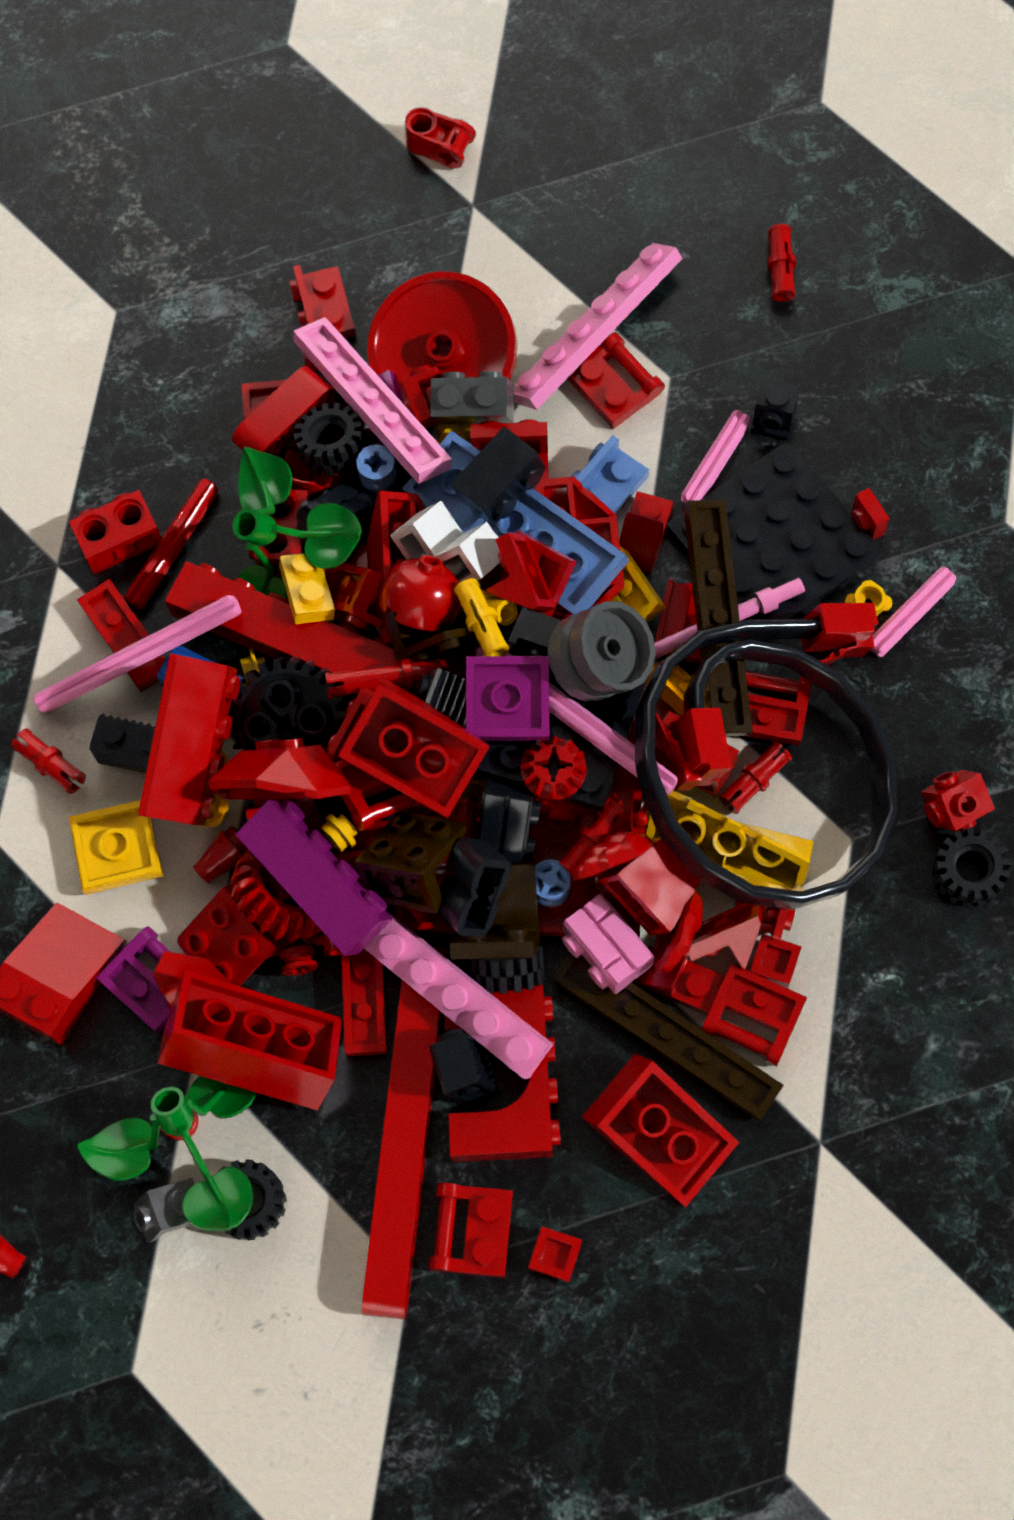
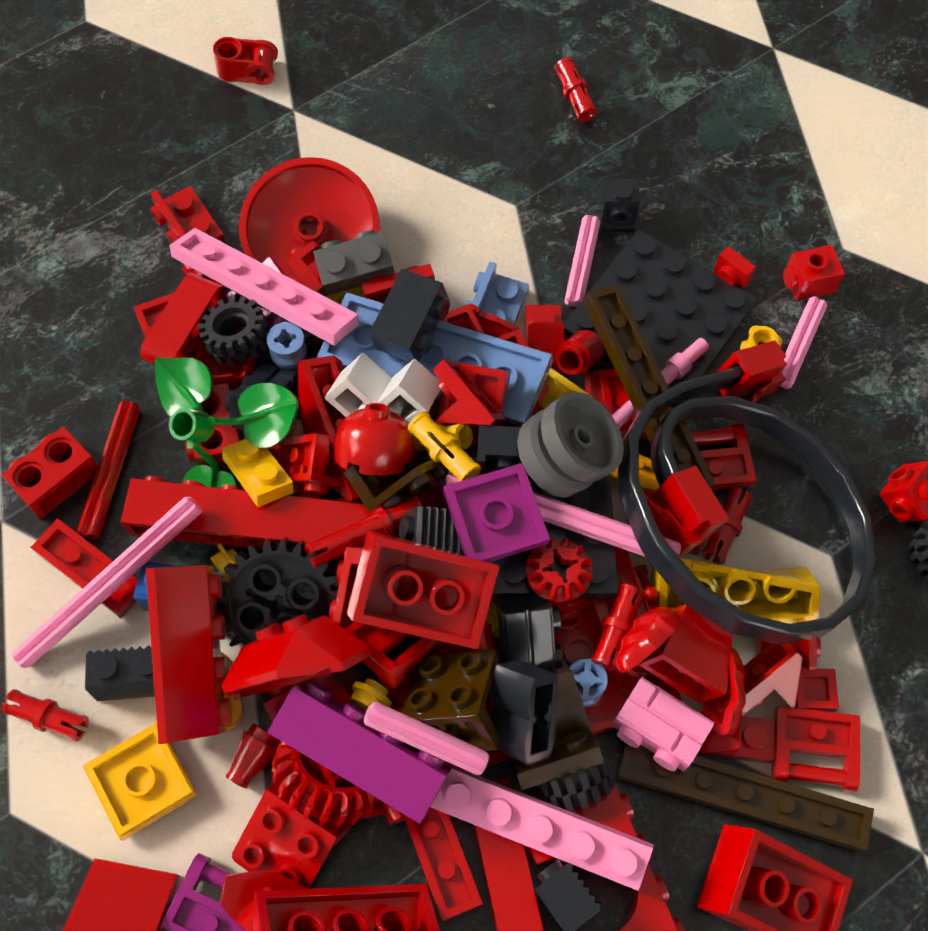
camera: 25 degrees left, 5 degrees down
(298, 960) = (362, 838): red bush -> none
(374, 882) = (426, 738): none -> bright pink axle
(595, 325) = (437, 178): bright pink plate -> none
(606, 389) = (465, 228): red plate -> none
(667, 559) = (579, 352): none -> red brick
(953, 541) = (813, 272): none -> red brick

